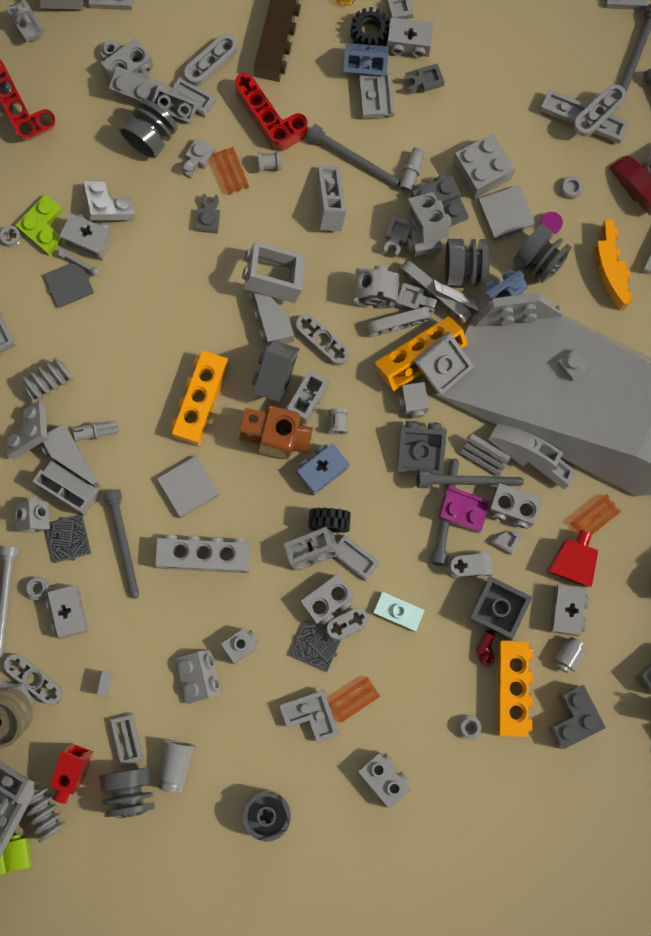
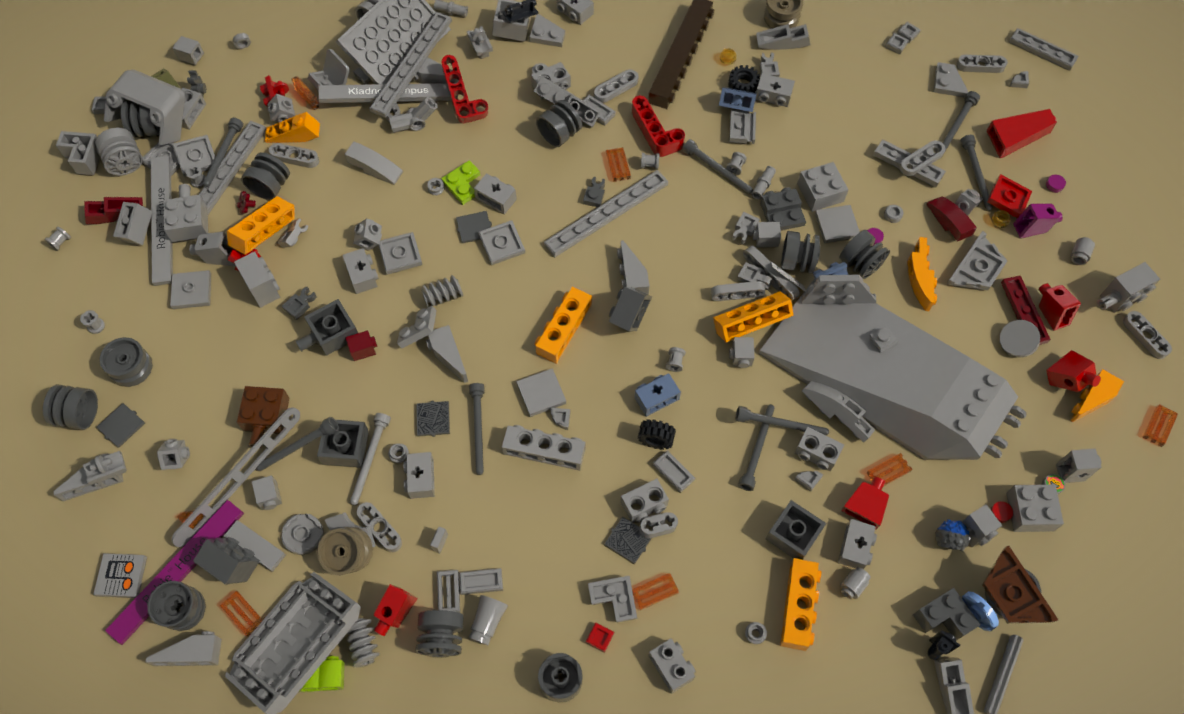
camera: 15 degrees right, 15 degrees down
(32, 516) = (407, 393): light grey brick -> none
(64, 254) = (474, 204): light grey hinge -> none
(67, 487) = (440, 377): light grey piece -> none
(95, 430) = (471, 336): light grey axle -> none
(105, 208) = (512, 173): light grey plate -> none
(106, 300) = (501, 242): none -> light grey tile
(160, 721) = (481, 581): none -> light grey tile
(198, 155) = (595, 150): light grey plate -> none
(198, 676) = (521, 547): light grey bracket -> none
(216, 513) = (561, 417): none -> light grey tile
(227, 240) = (605, 213): none -> light grey tile
(240, 645) = (562, 526): light grey brick -> none
(265, 431) = (623, 356): dark orange piece -> none
(270, 286) = (637, 245): light grey window -> none
(302, 761) = (600, 637): none -> red tile
(306, 333) = (672, 304): light grey beam -> none
(308, 396) = (653, 335): light grey brick -> none
(311, 549) = (637, 455): light grey brick -> none
(330, 199) = (694, 194): light grey slope -> none
(375, 149) = (736, 163): none -> light grey bush
(376, 287) = (722, 260): light grey brick -> none
(399, 611) = (705, 522): light aqua plate -> none
(421, 447) = (744, 389): dark grey plate -> none
(427, 78) = (784, 120): dark grey plate -> none
(429, 217) = (773, 213): light grey brick -> none
(444, 363) = (771, 324): light grey tile -> none
(463, 509) = (773, 445): magenta plate -> none
(474, 565) = (777, 492): light grey piece -> none
(484, 457) = (796, 407): light grey tile -> none
(484, 648) = (777, 566): dark red arm -> none
(582, 718) = (859, 641): dark grey brick -> none

